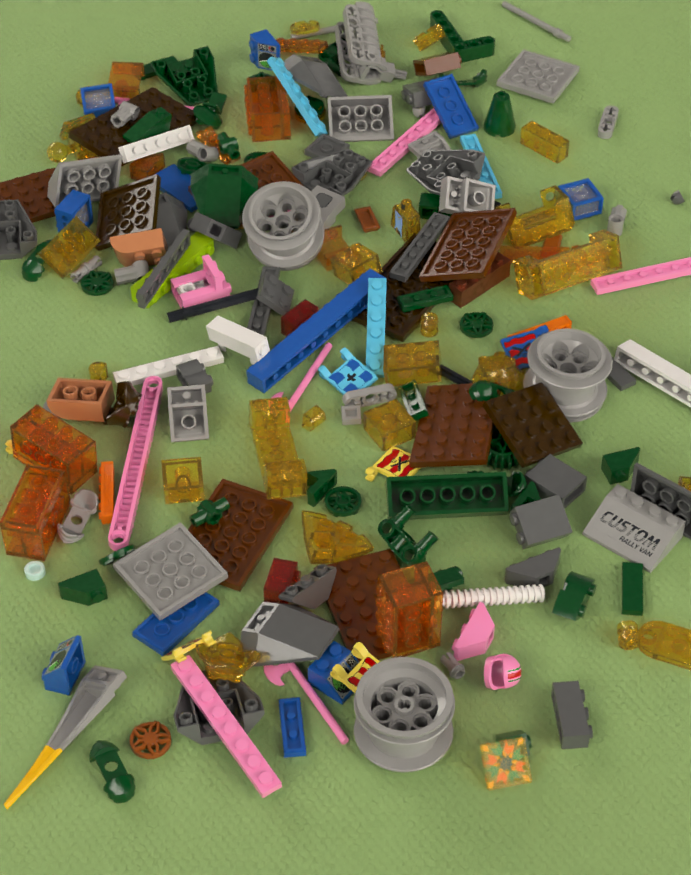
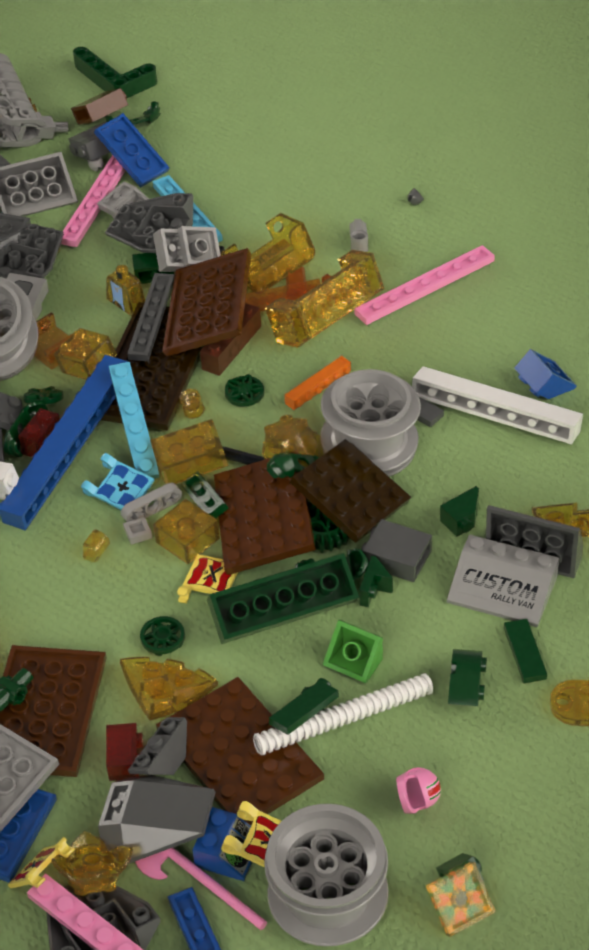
camera: 15 degrees left, 0 degrees up
(274, 320) = (11, 439): none -> dark green piece
(277, 457) = (63, 595): clear yellow plate -> none
(308, 377) = (43, 535): bright pink piece -> none
(312, 291) = (47, 395): none -> dark green wheel
(320, 484) = (129, 622): dark green slope -> none
(367, 219) = (78, 299): dark orange tile -> none
(401, 542) = (250, 667): dark green piece -> none
(409, 610) = (293, 747): clear orange brick -> none
(425, 40) = (85, 74): clear yellow hinge -> none
(425, 298) = (177, 374): dark green tile -> none
(455, 669) = (362, 801): light grey pin -> none
(475, 635) = (371, 753): bright pink slope -> none
(490, 552) = (354, 651): none -> bright green slope
(500, 116) = (190, 149): dark green cone -> none
(518, 345) = (307, 402): flag -> none
(534, 570) = (410, 658): dark grey slope -> none
(538, 76) = (215, 96): light grey plate -> none
(540, 522) = (398, 600): dark grey brick -> none
(544, 142) = (249, 167): clear yellow brick -> none
(555, 31) = (218, 44): light grey bar -> none
(571, 715) = (511, 818): dark grey brick -> none
(584, 198) = (318, 219): piece -> none
(606, 117) = (308, 135): light grey beam -> none
(628, 635) = (541, 706): clear yellow wheel -> none

